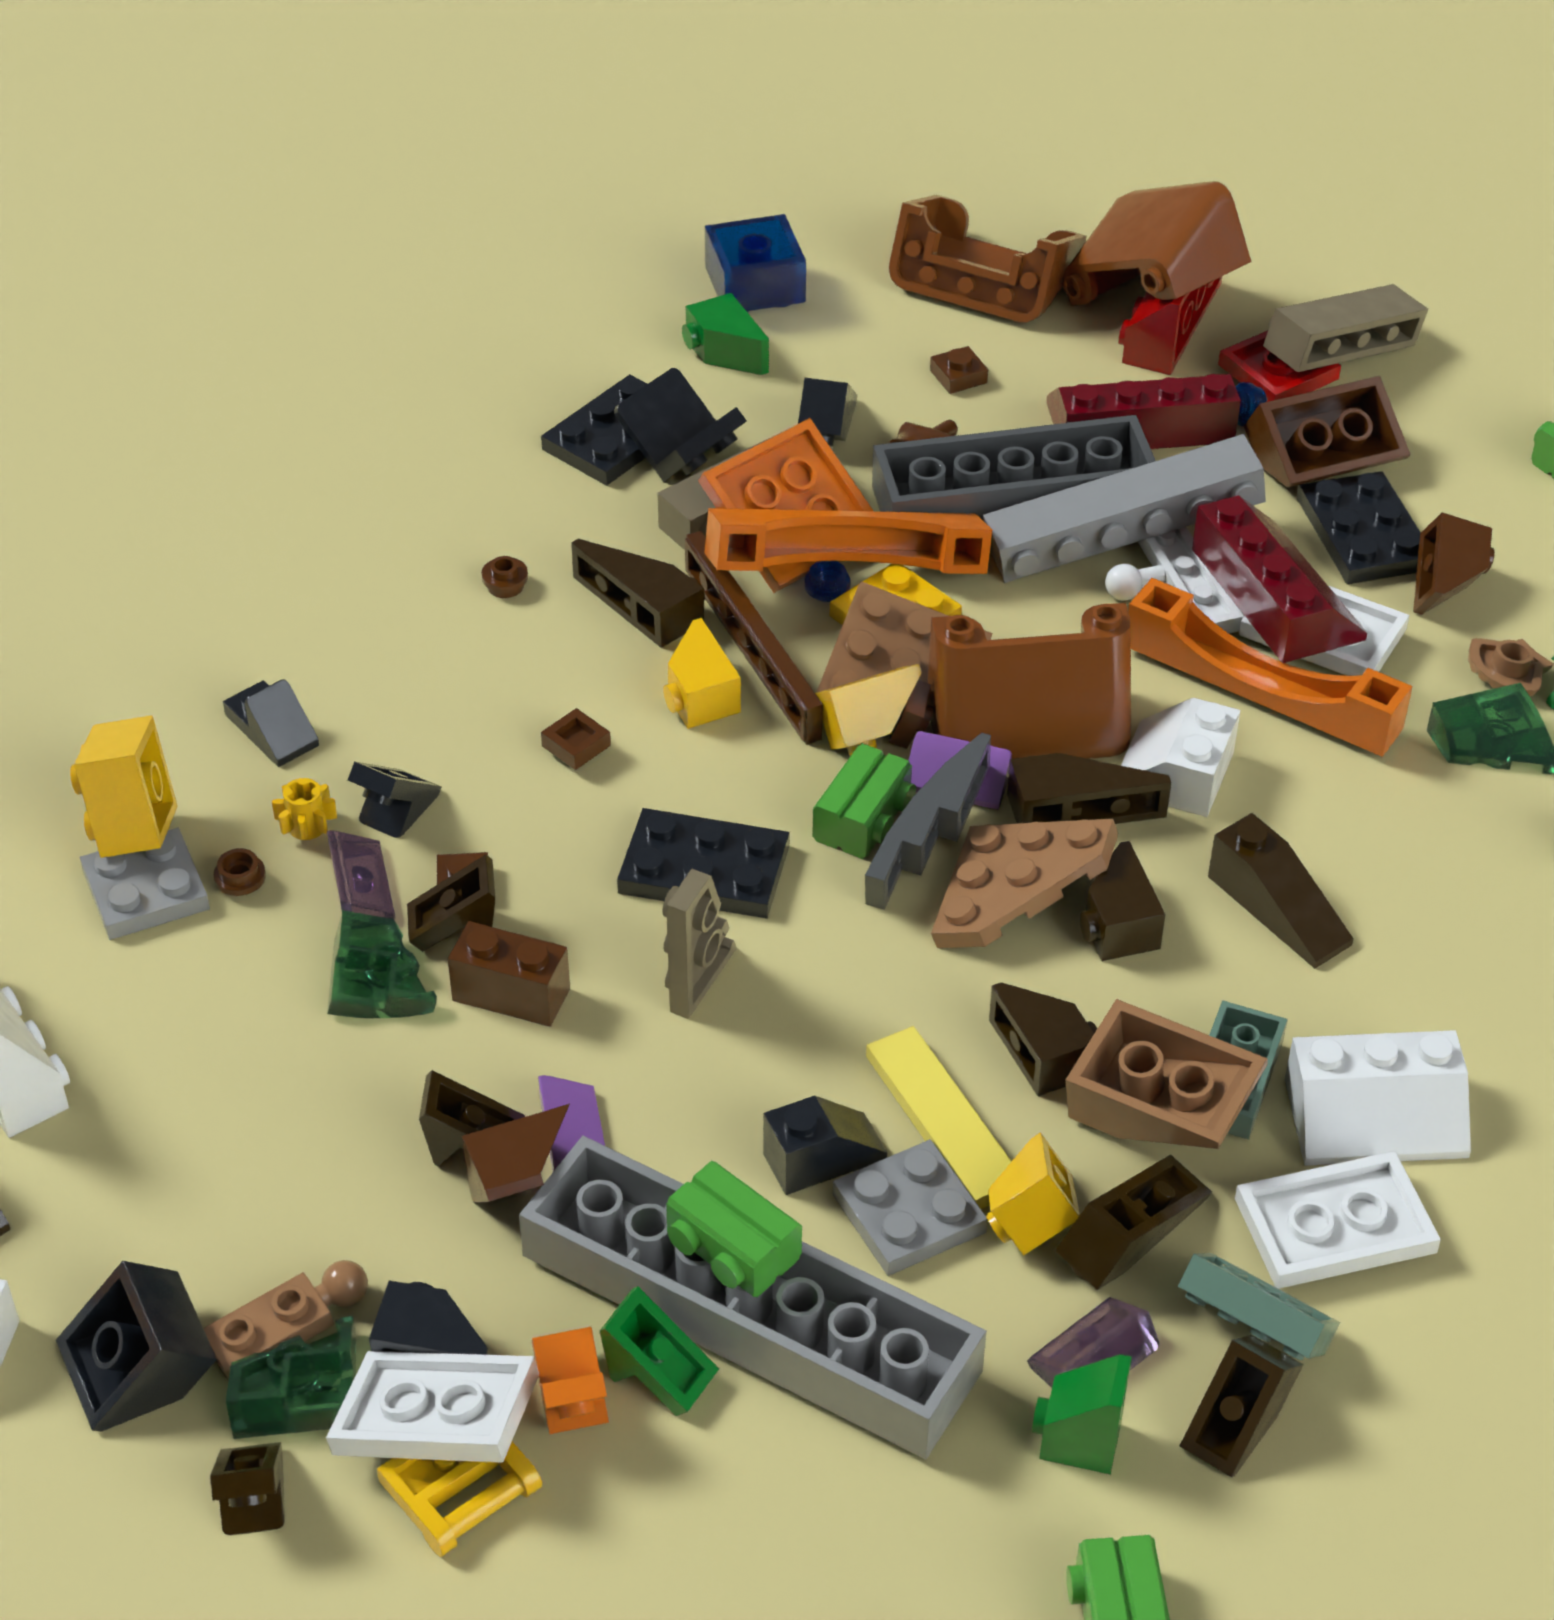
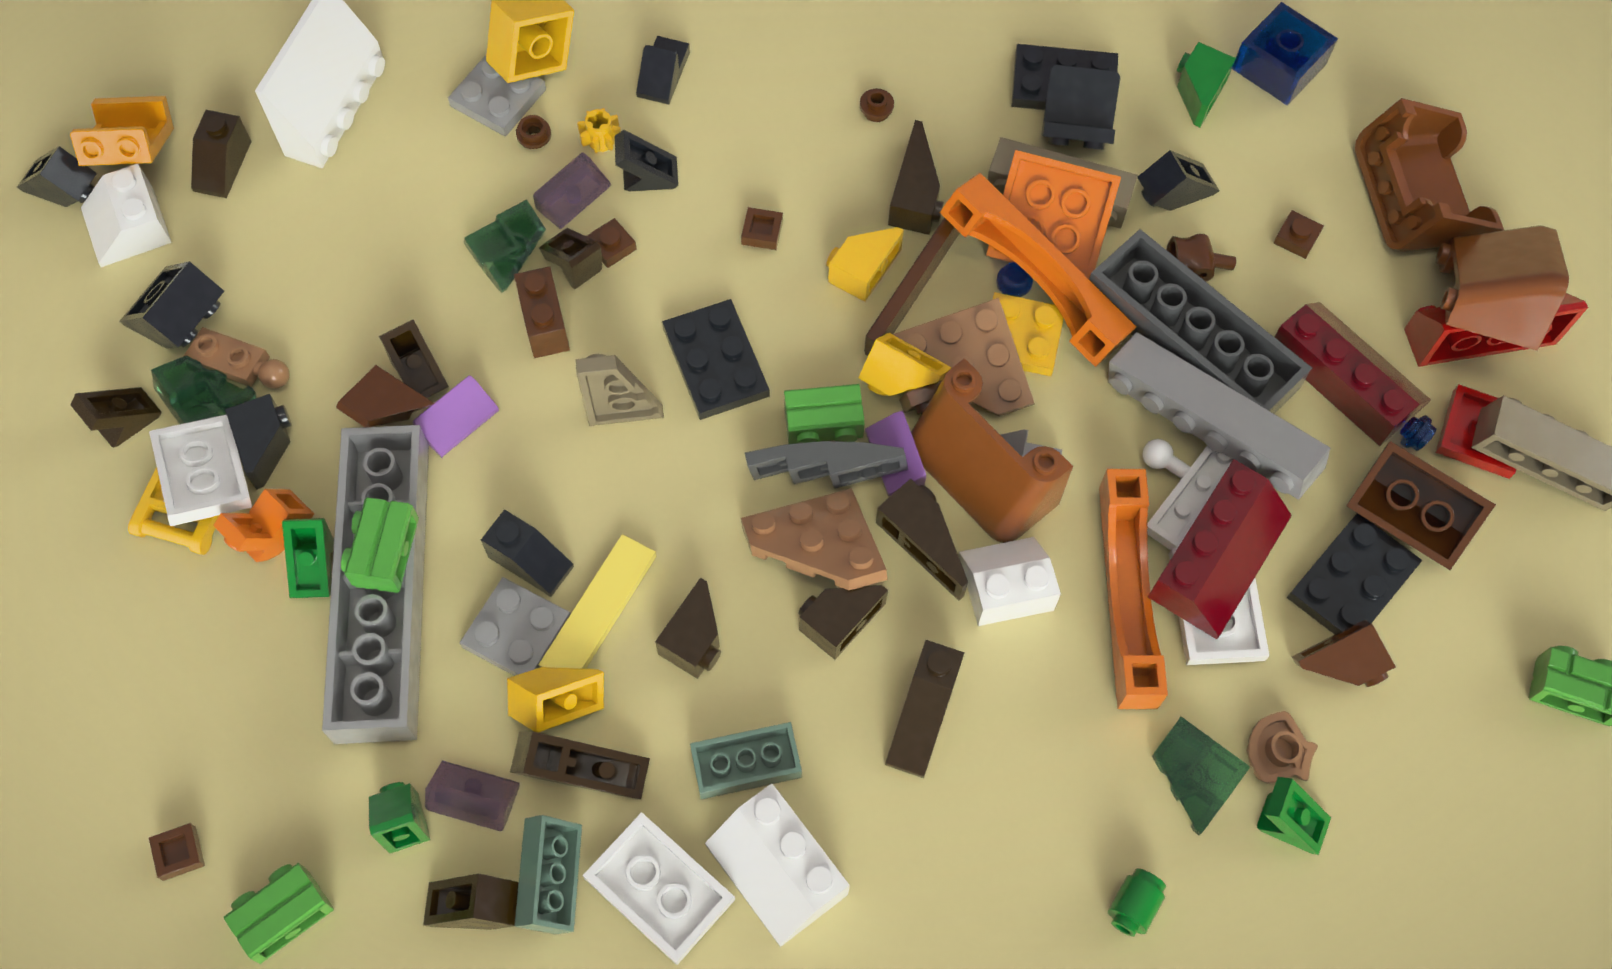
camera: 55 degrees right, 20 degrees up
(1160, 1080) = (681, 721): medium nougat slope -> none

